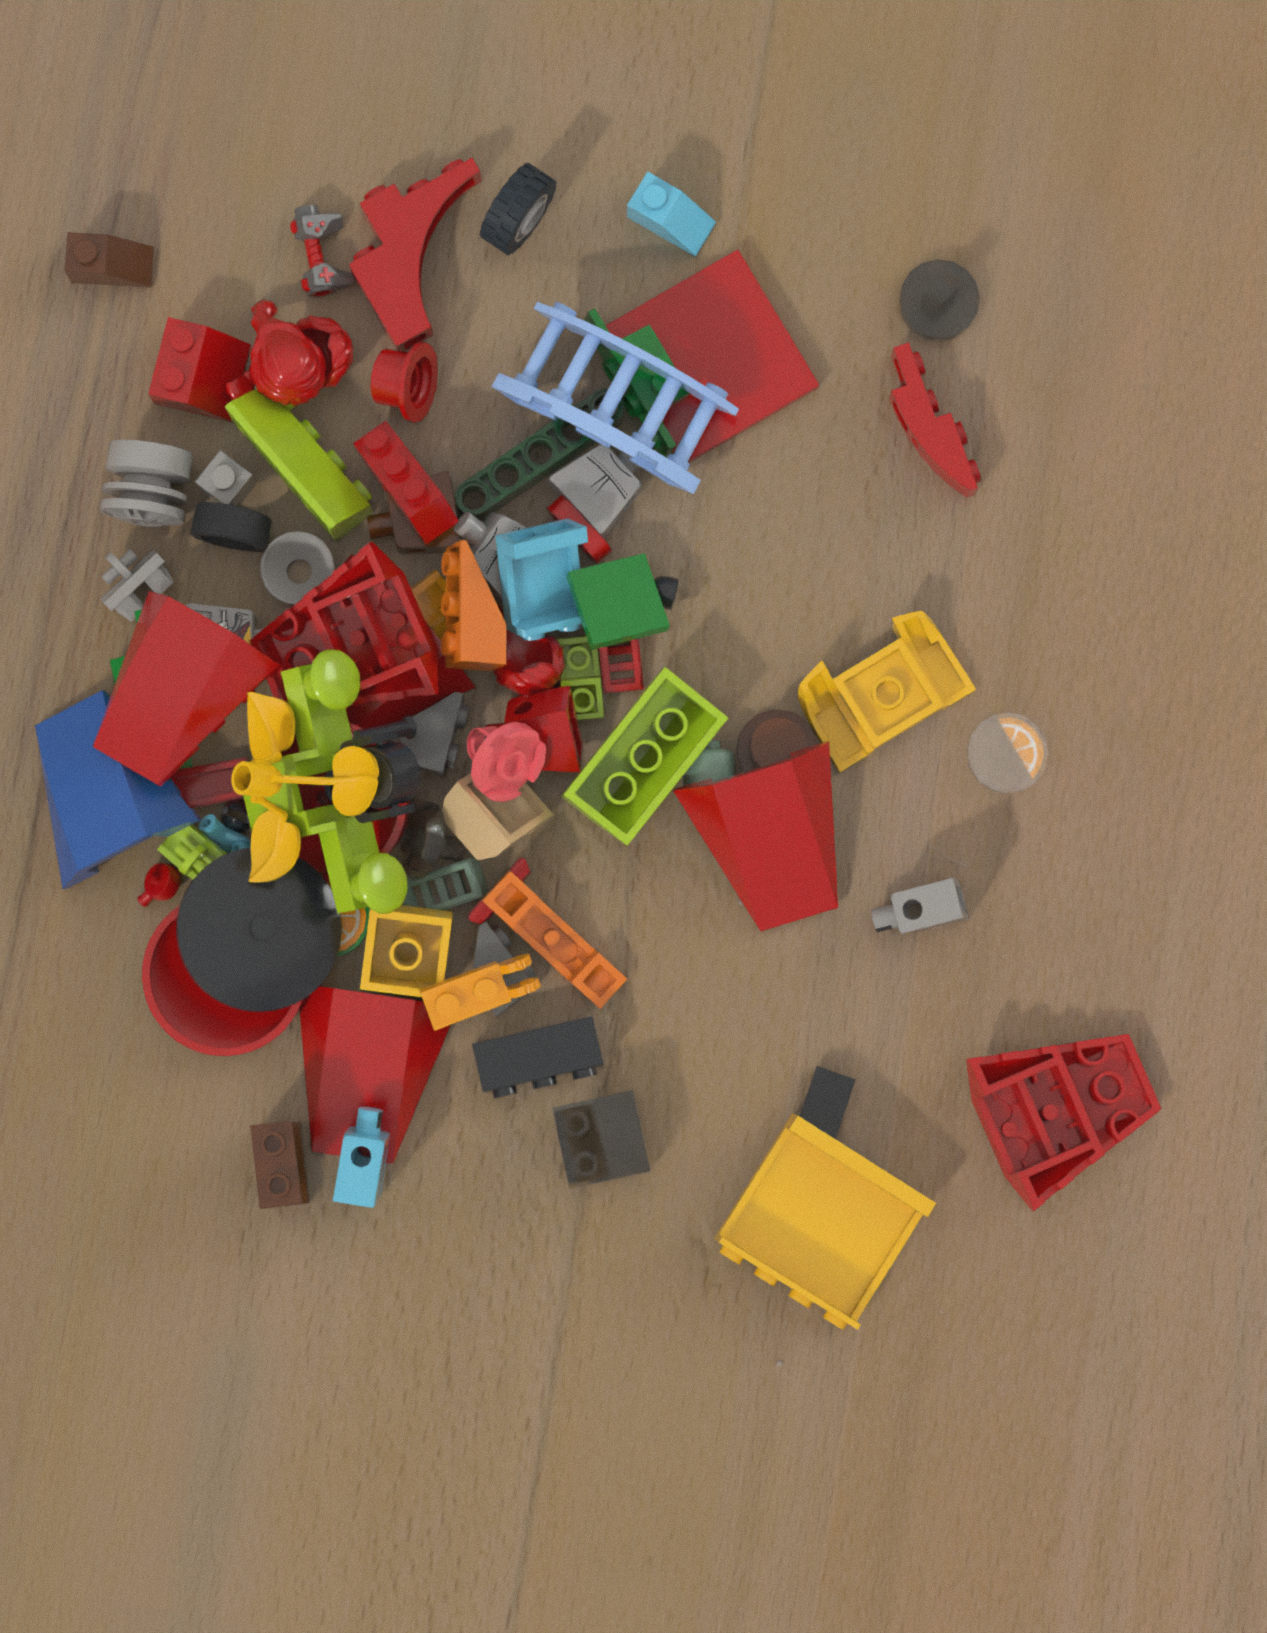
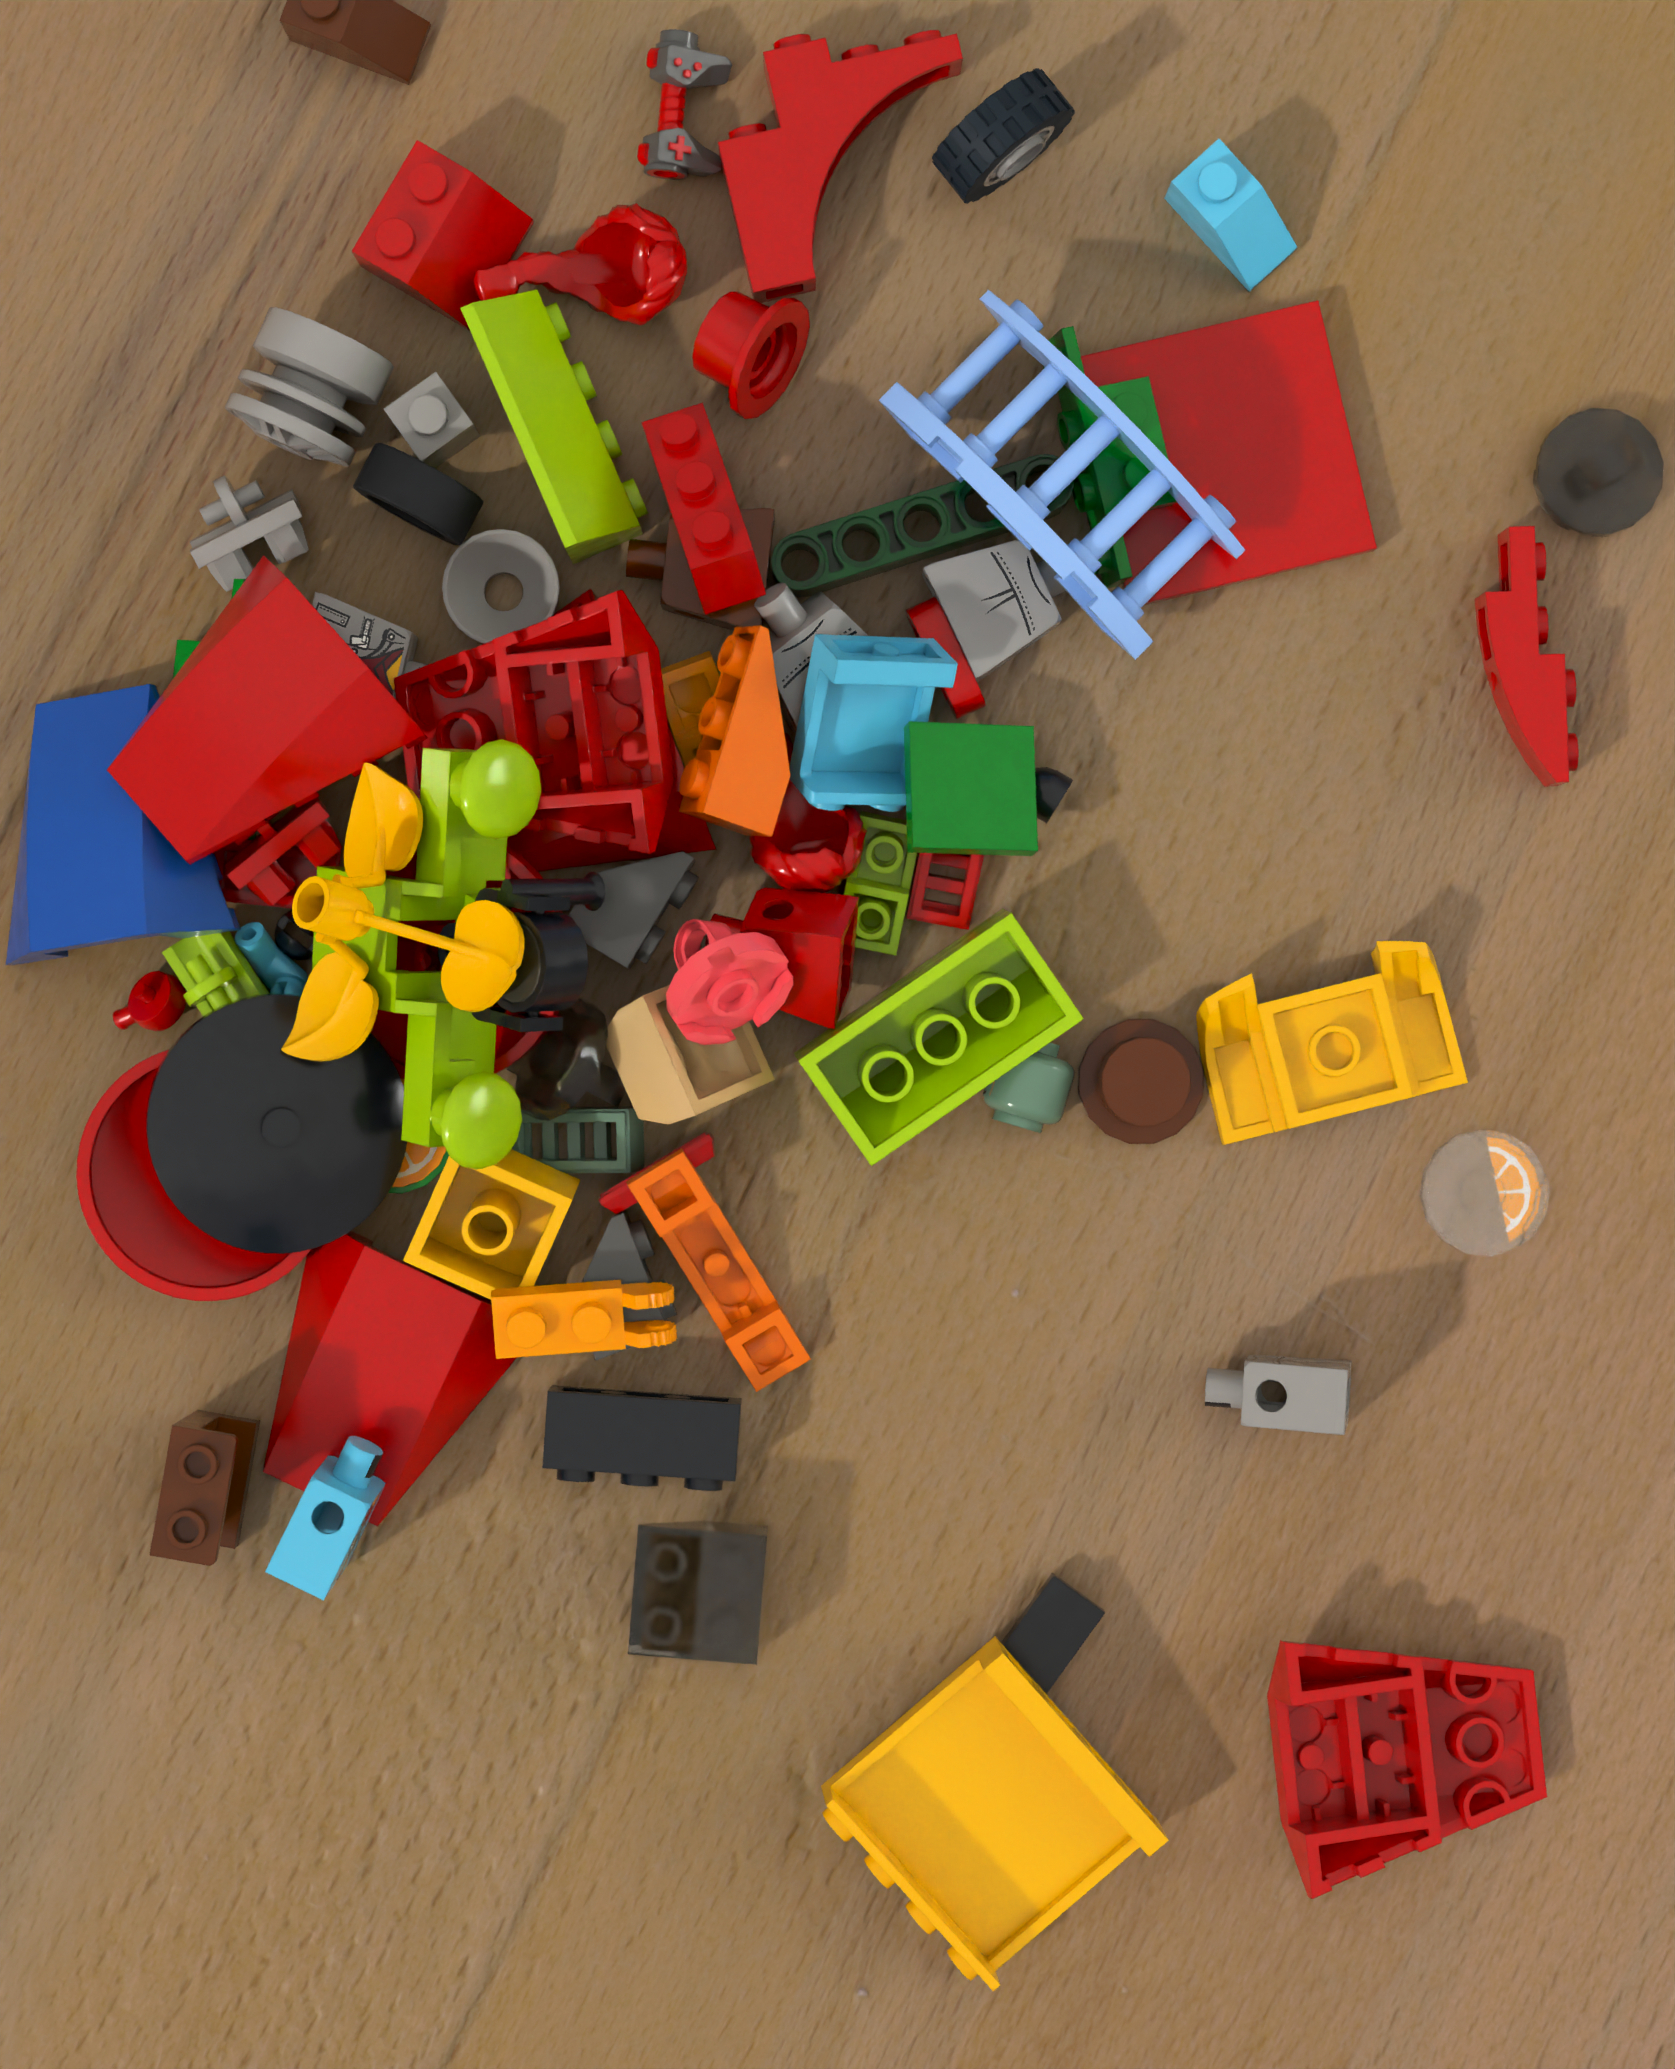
camera: 20 degrees right, 5 degrees up
(199, 777) = (257, 862): none -> red hips
(283, 359) = (573, 261): red hair -> none
(772, 835) = (1095, 1213): red wedge -> none

